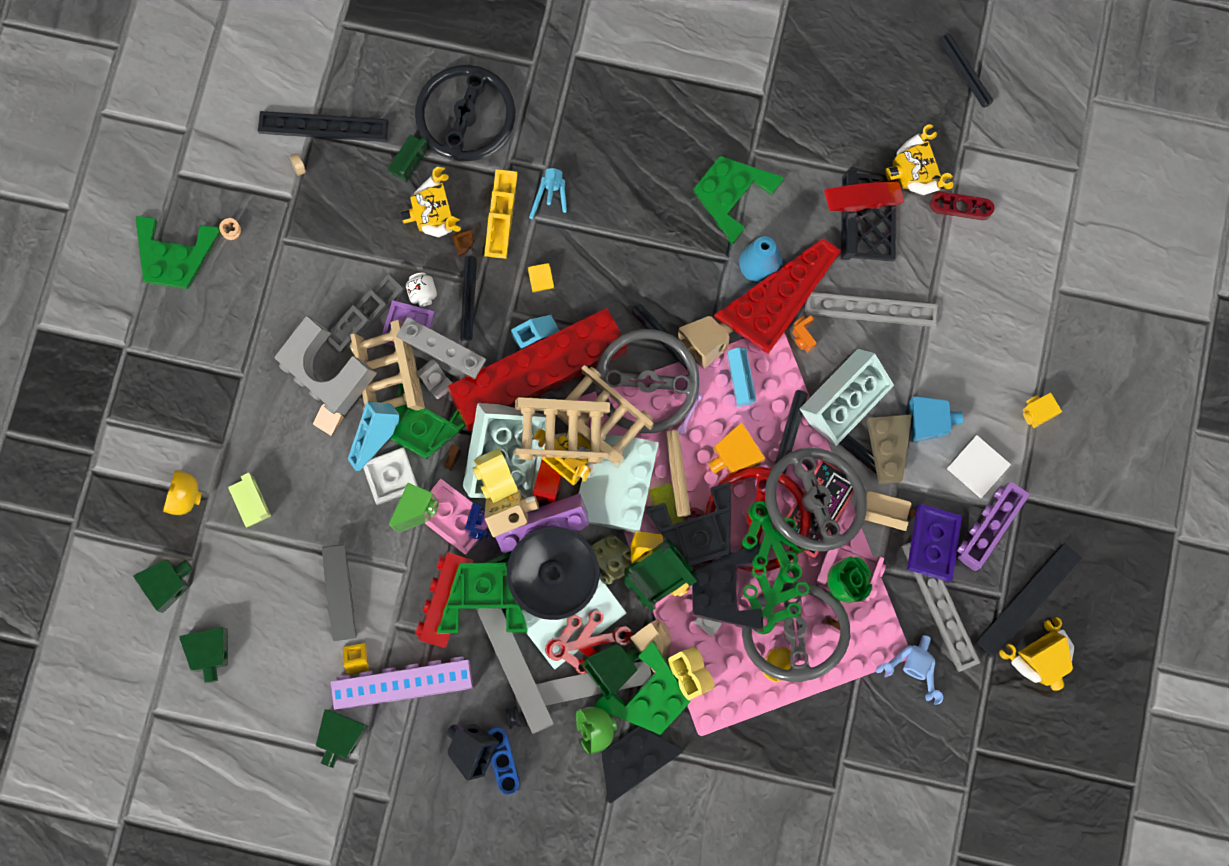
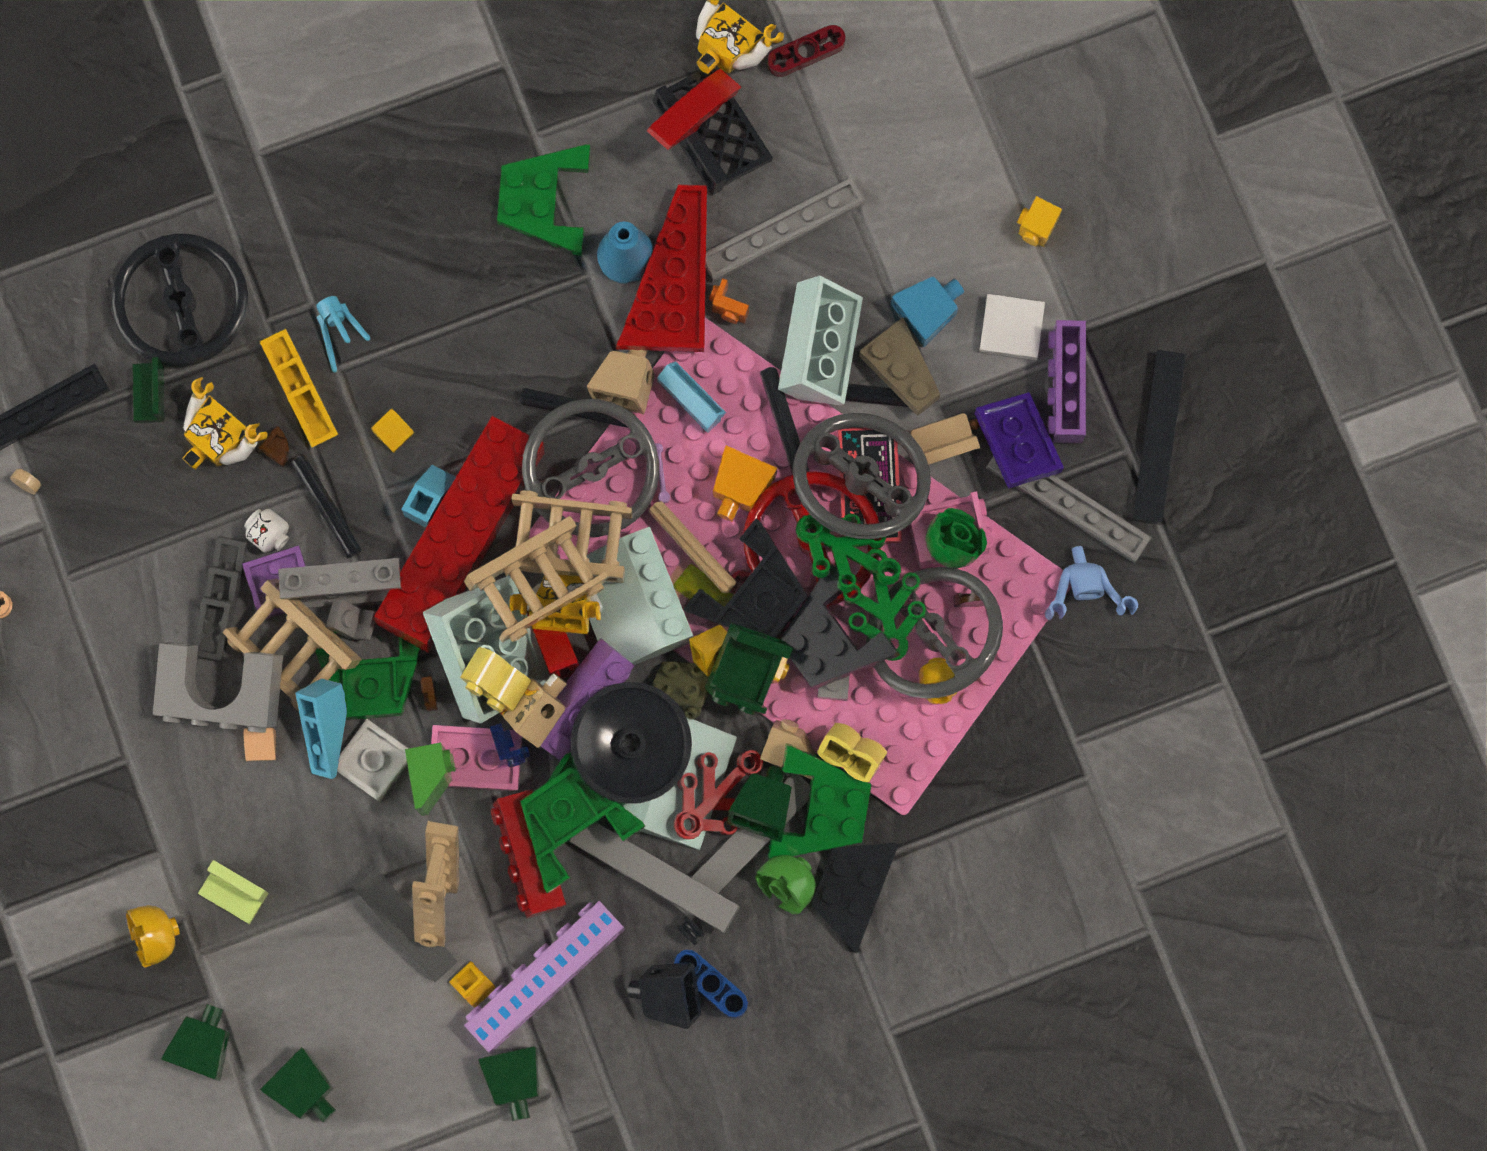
camera: 35 degrees left, 0 degrees up
(376, 577) = (441, 878): none -> tan fence
(1046, 658) = (1217, 486): yellow torso -> none

